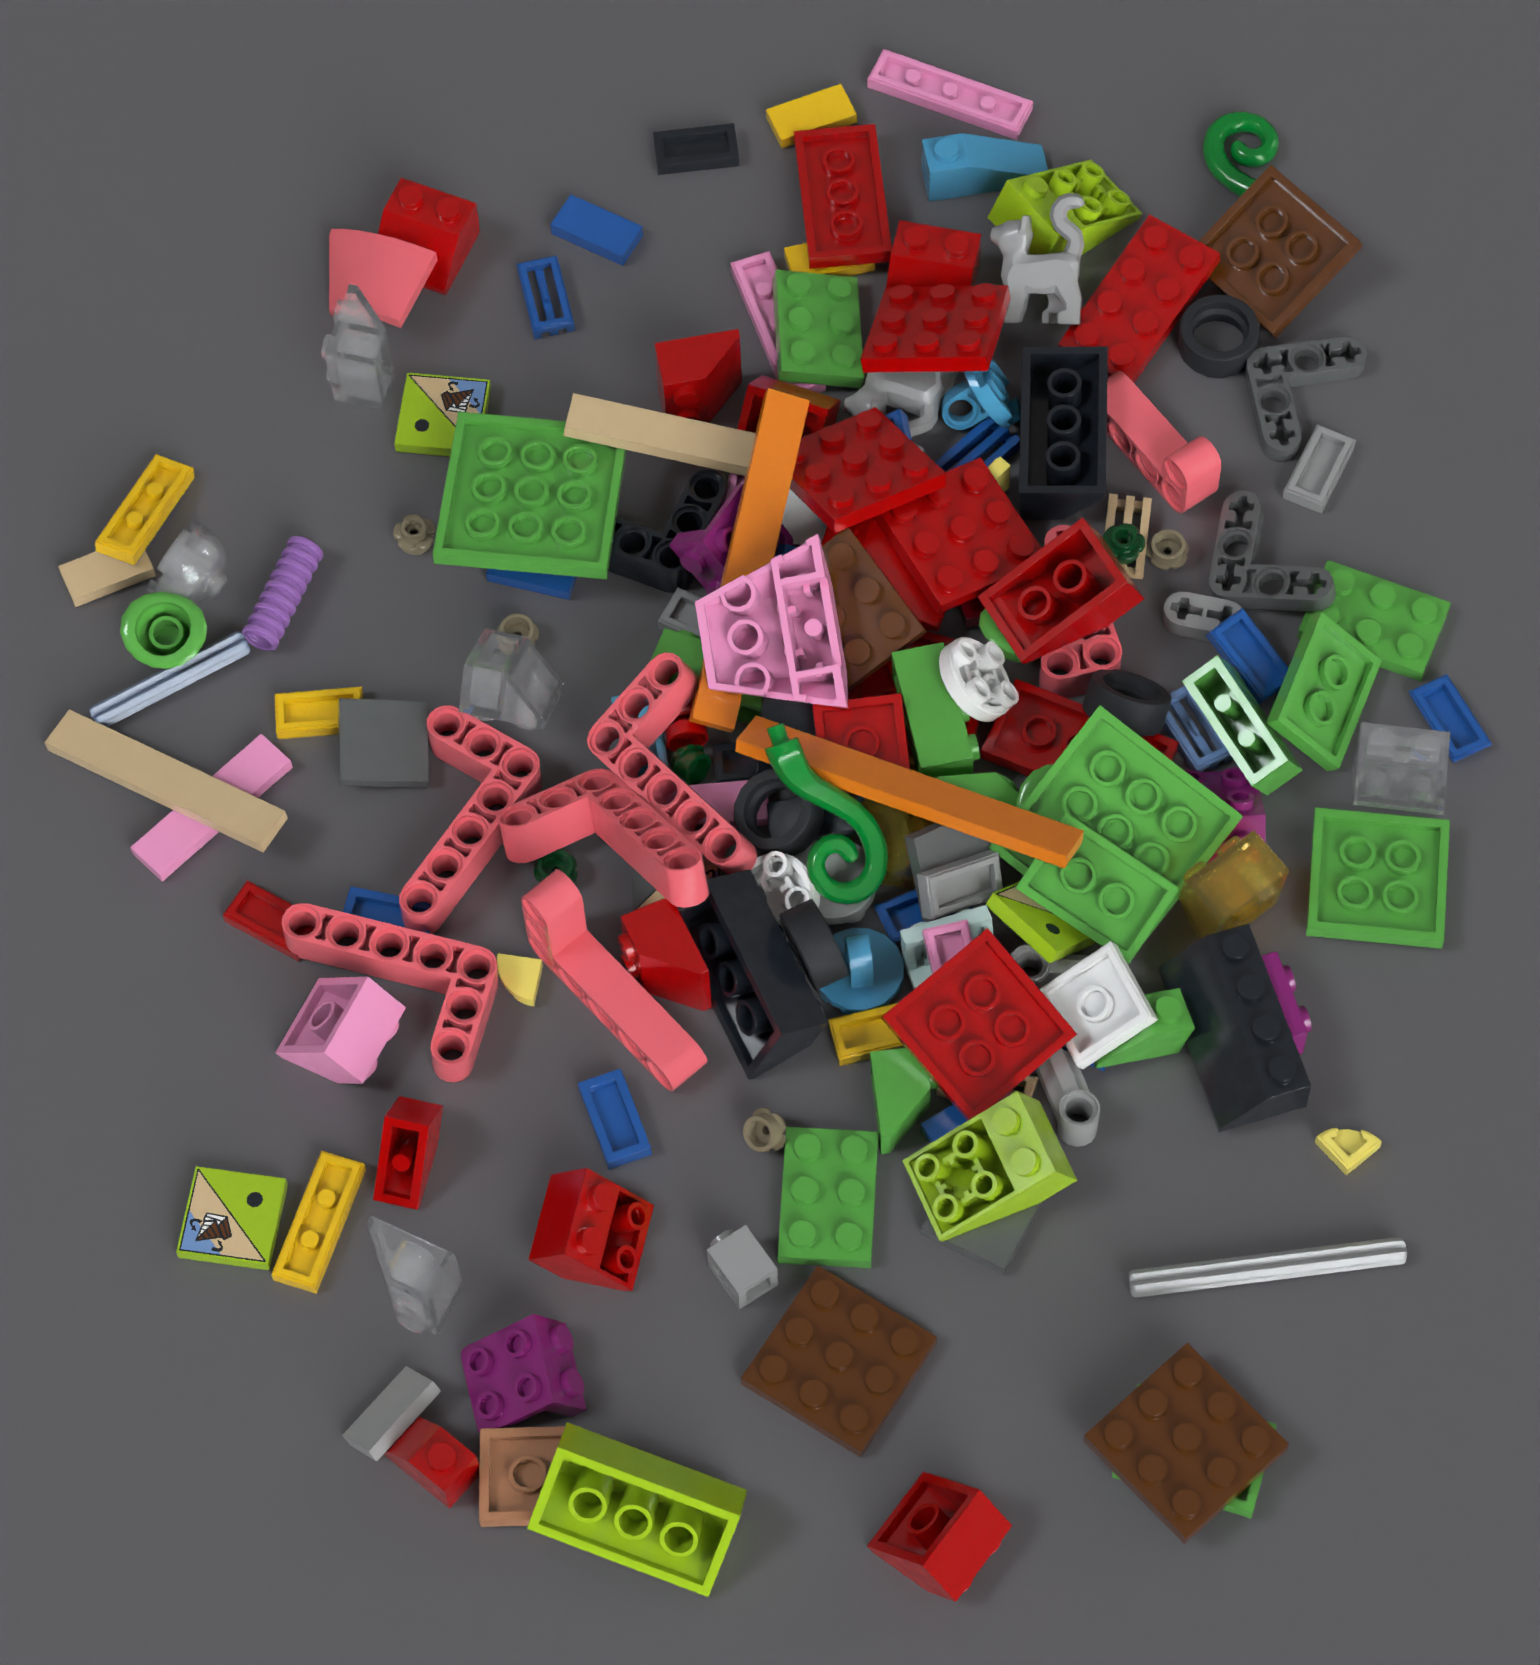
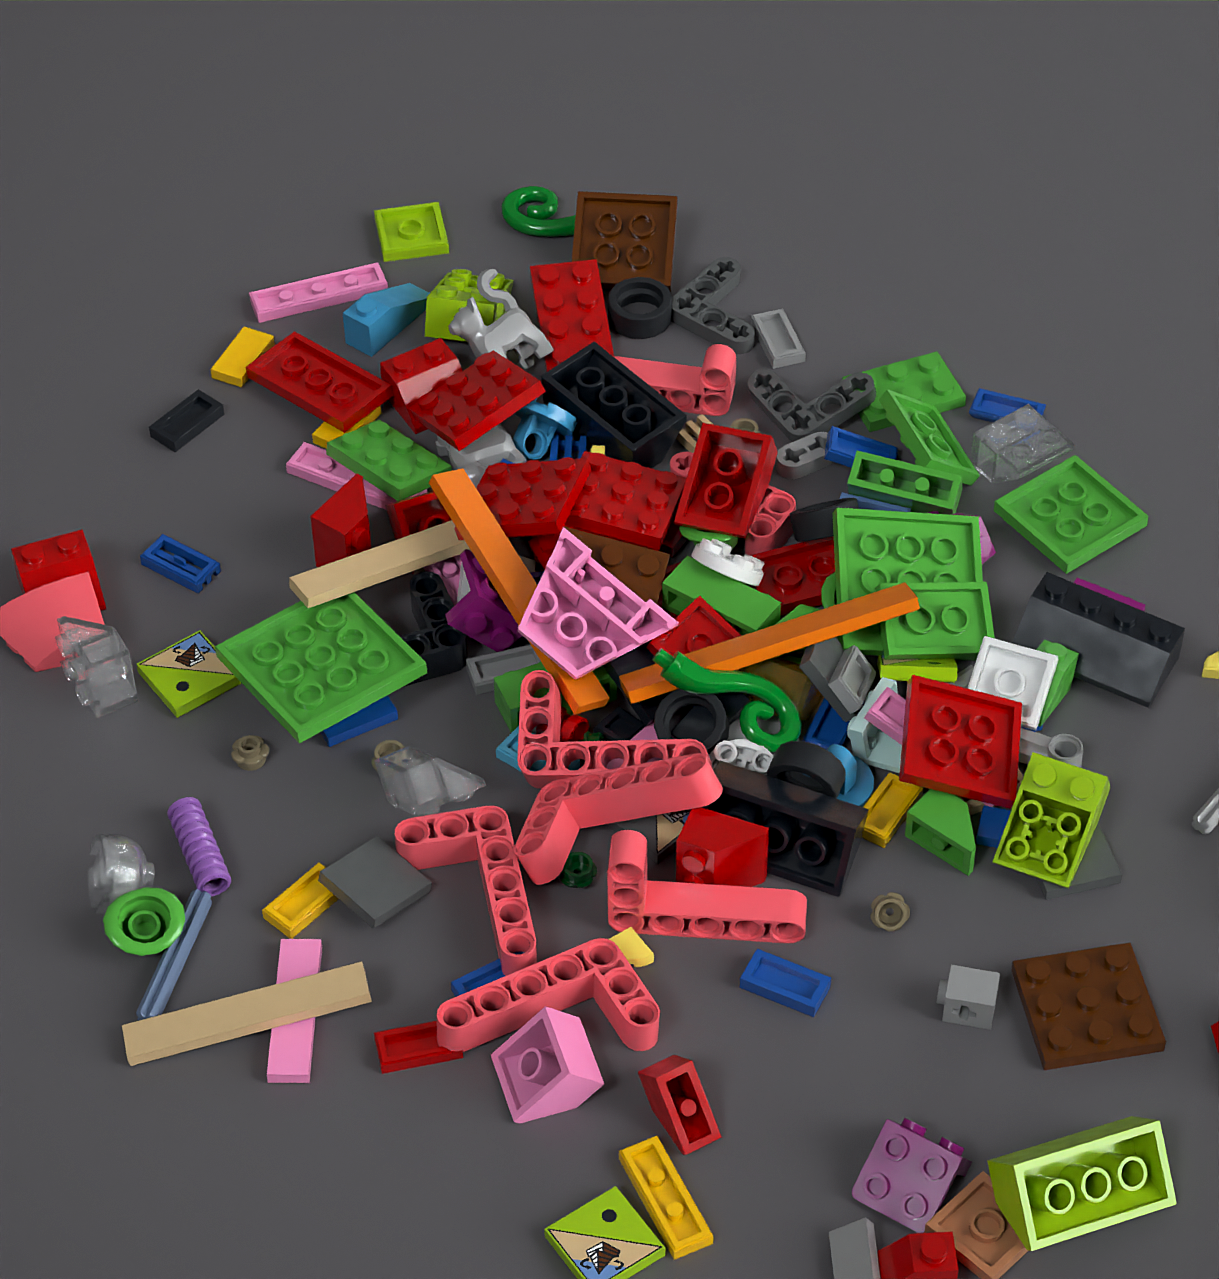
camera: 45 degrees left, 15 degrees down
(101, 575) = (49, 926): tan tile -> none
(144, 509) = (38, 867): yellow tile -> none
(417, 1275) = (776, 1164): clear slope -> none
(591, 1230) = (852, 1052): red slope -> none
(596, 230) = (171, 505): blue tile -> none
(828, 1197) = (970, 920): bright green plate -> none
(1103, 87) = (411, 231): none -> lime tile
(1233, 886) = (1010, 565): clear yellow slope -> none

